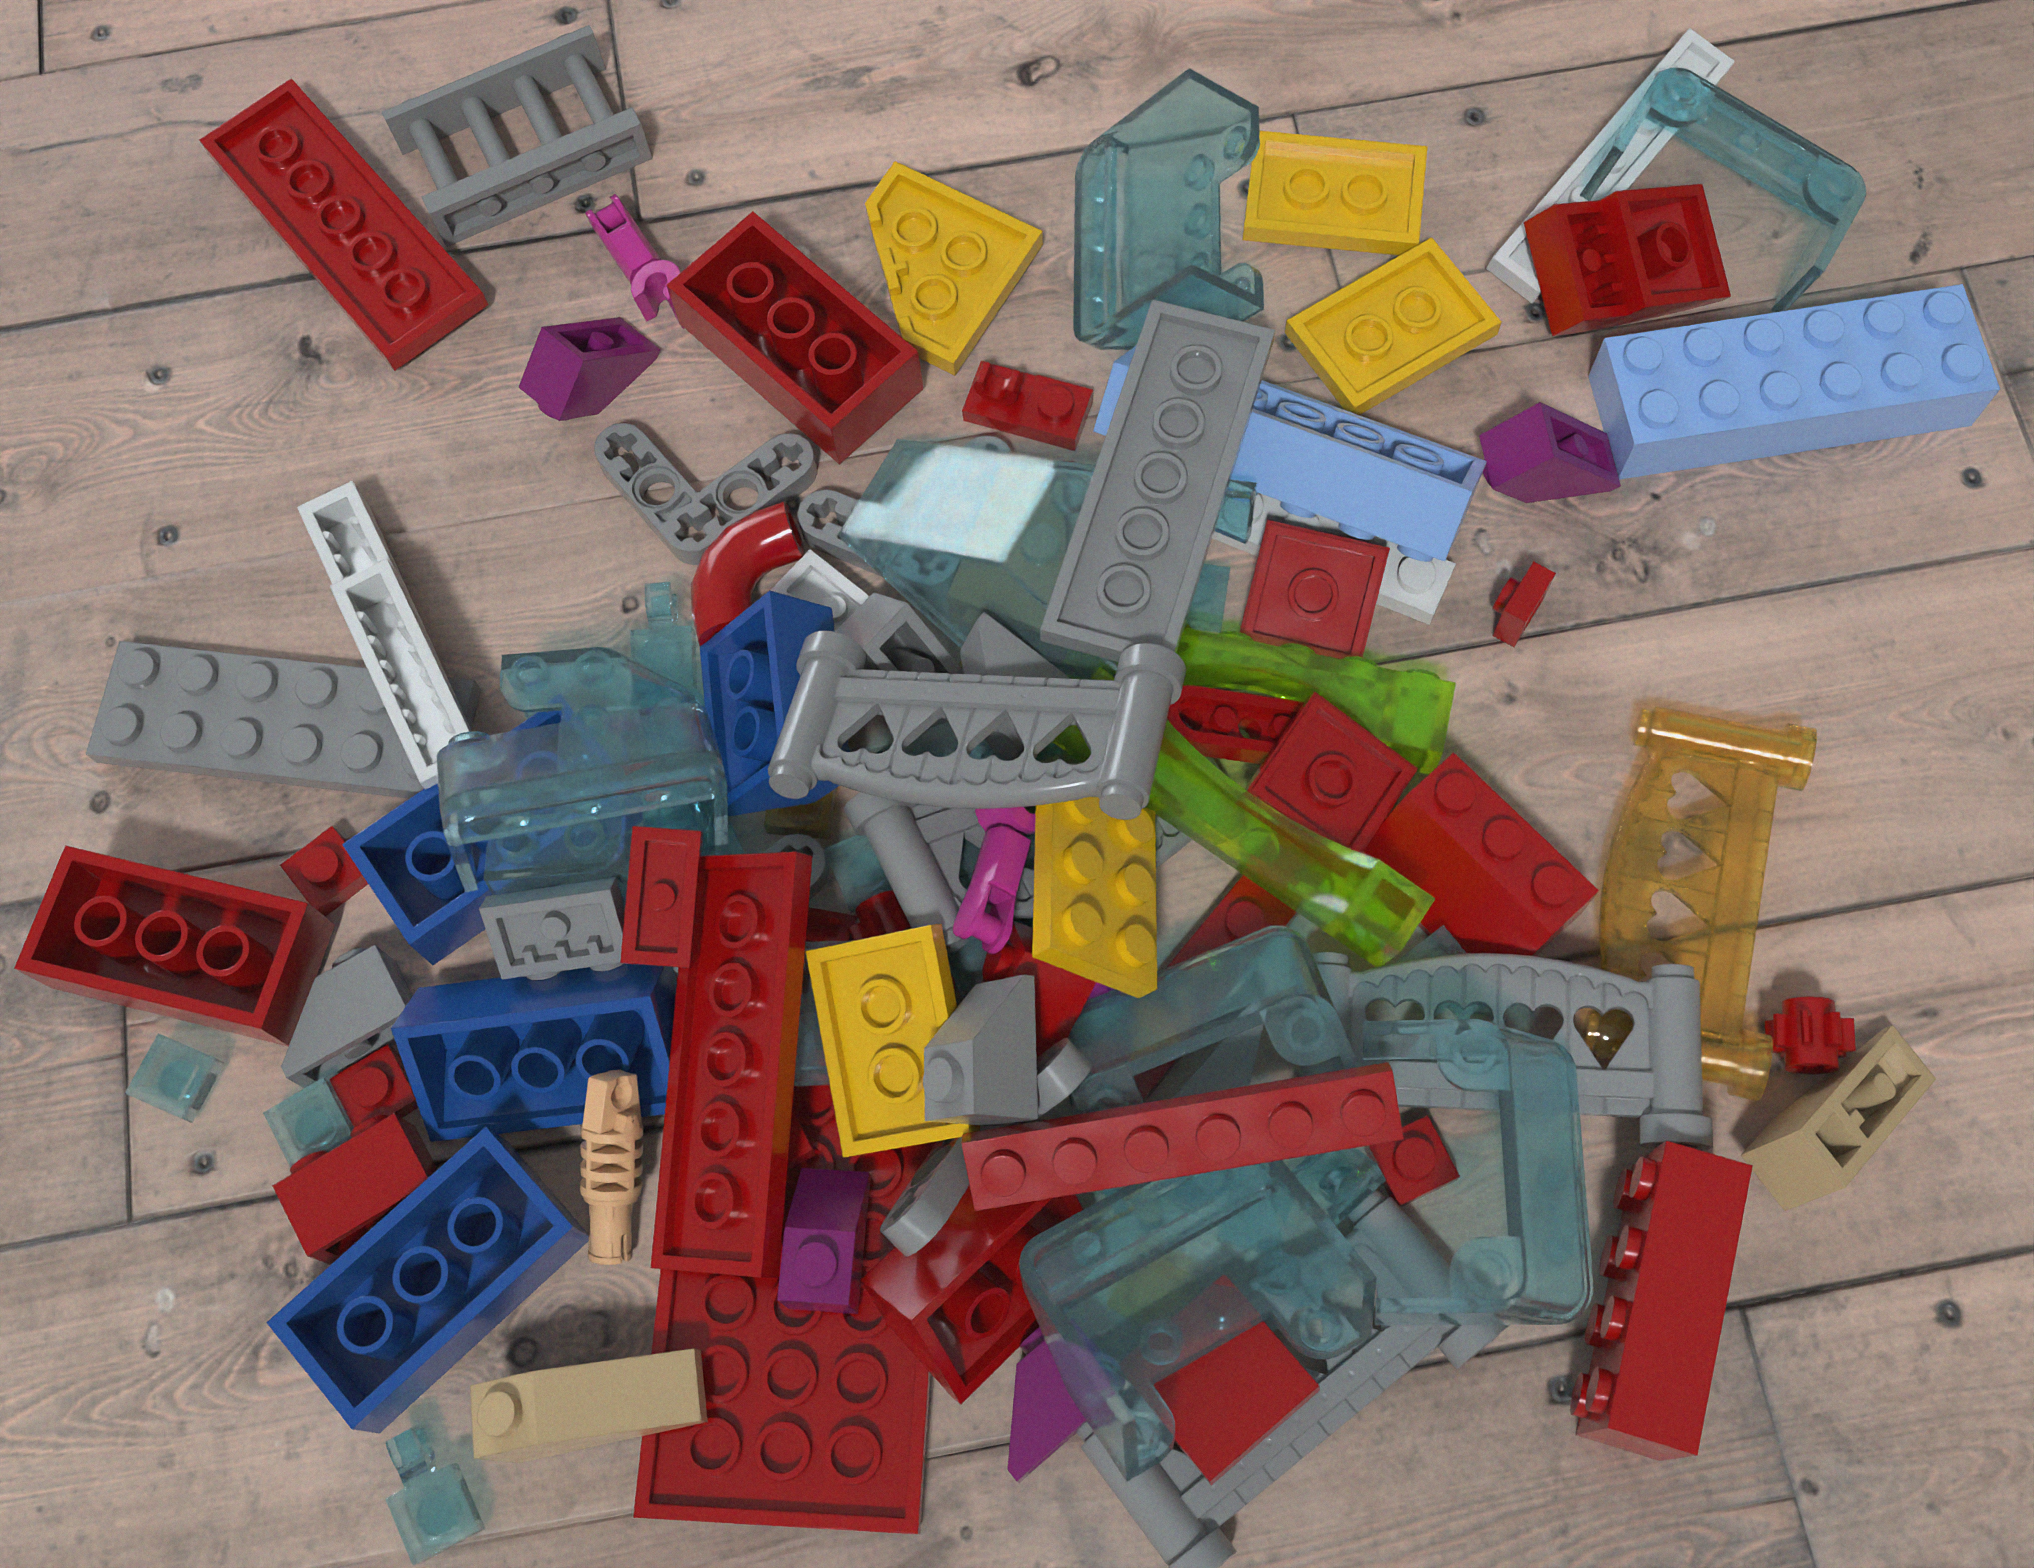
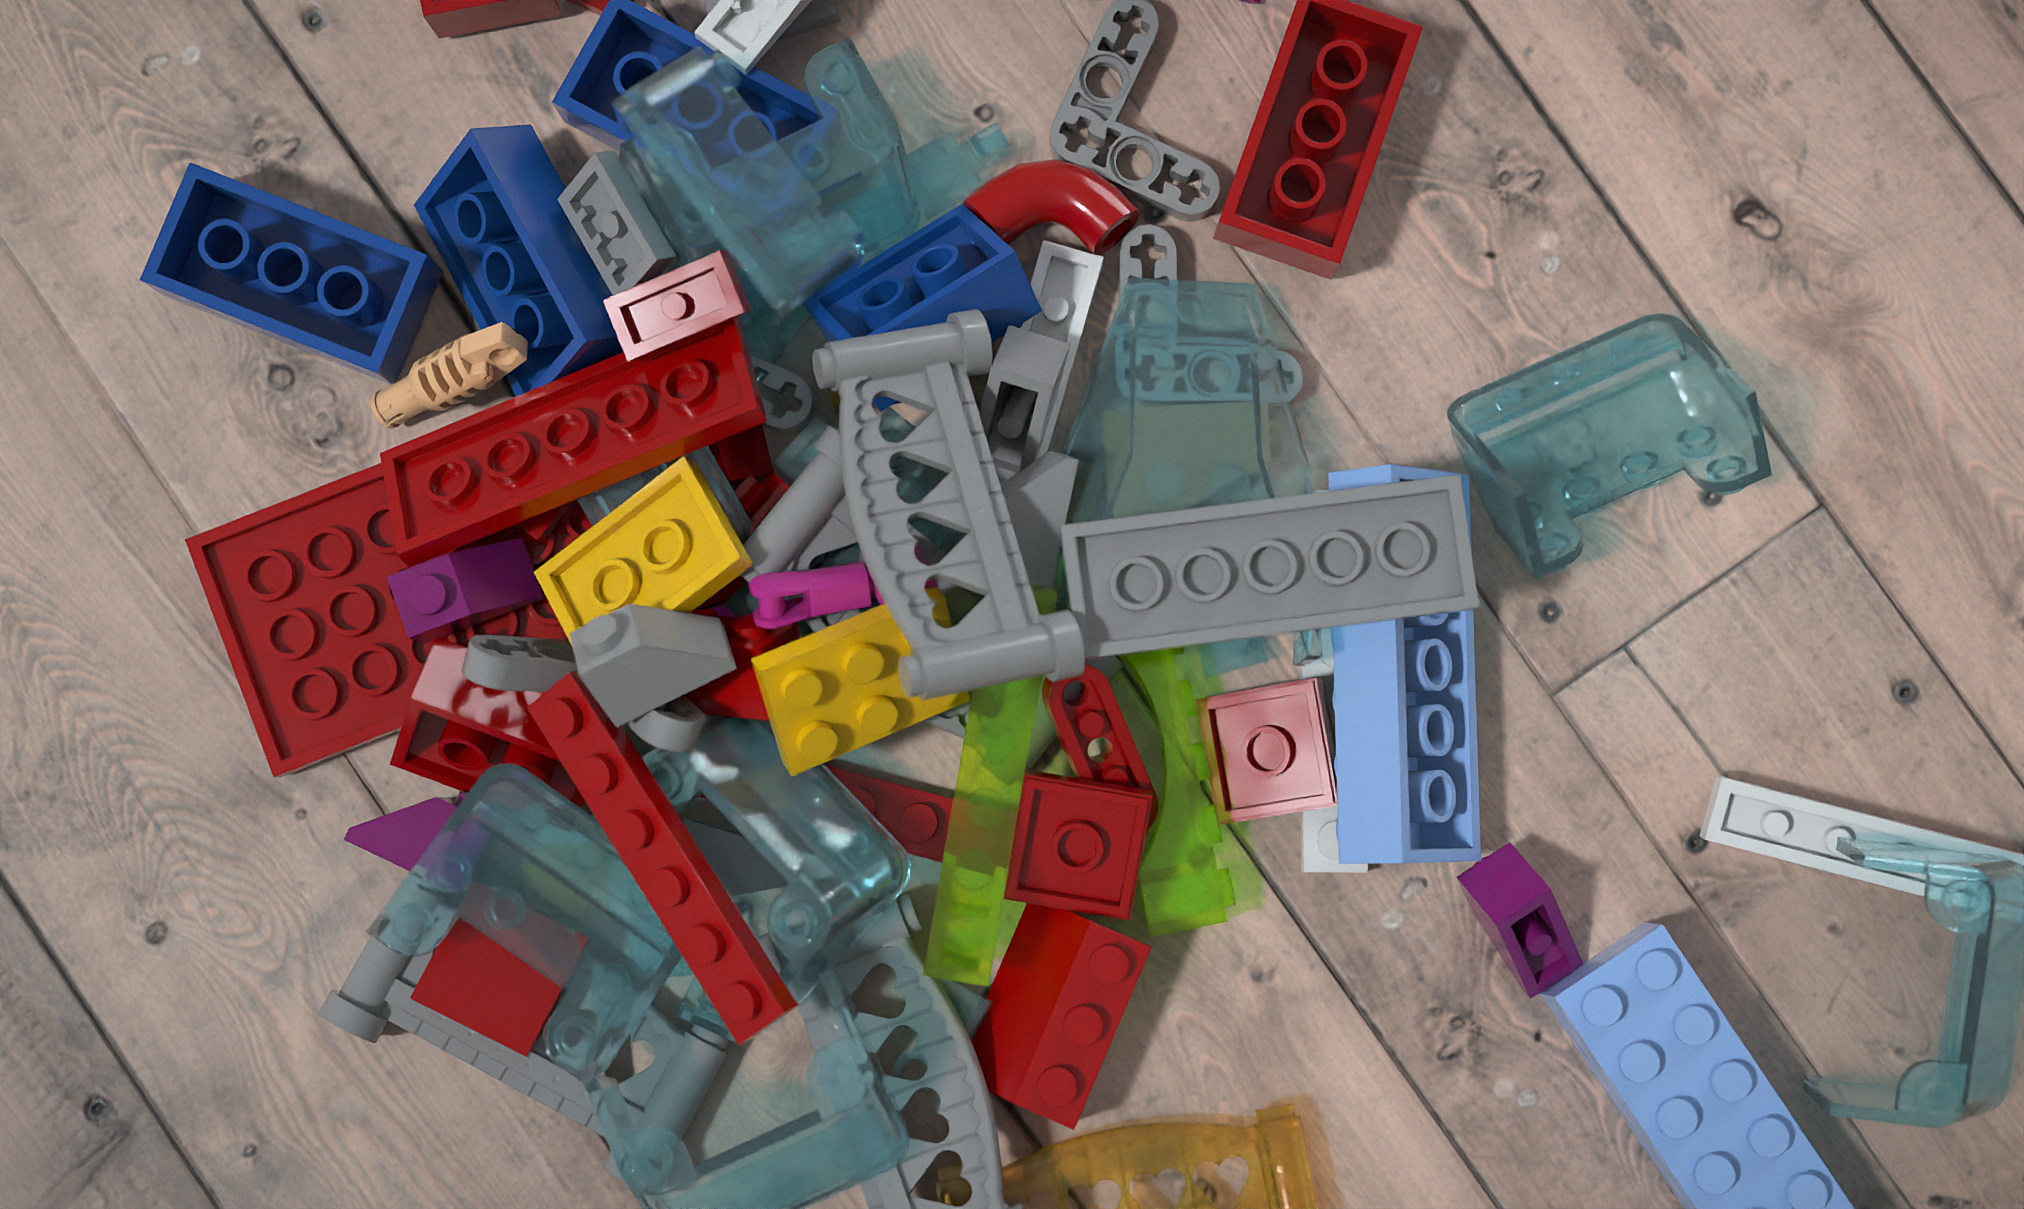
camera: 60 degrees right, 15 degrees up
(309, 1121) = (378, 97): clear light blue plate -> none
(346, 1015) = (485, 77): light grey slope -> none
(348, 1190) = (343, 169): red brick -> none
(375, 1087) = (431, 132): red plate -> none
(434, 1505) = (124, 371): clear light blue plate -> none
(586, 1405) = (249, 458): tan slope -> none
(945, 262) = (1477, 234): yellow plate -> none
(1028, 405) = (1359, 389): red plate -> none
(1336, 193) = (1735, 589): yellow plate -> none
(1392, 327) = (1603, 709): yellow plate -> none
(1414, 1164) = (770, 1061): red plate -> none
(1520, 602) = (1351, 949): red plate -> none
(1626, 258) = (1781, 913): red slope -> none

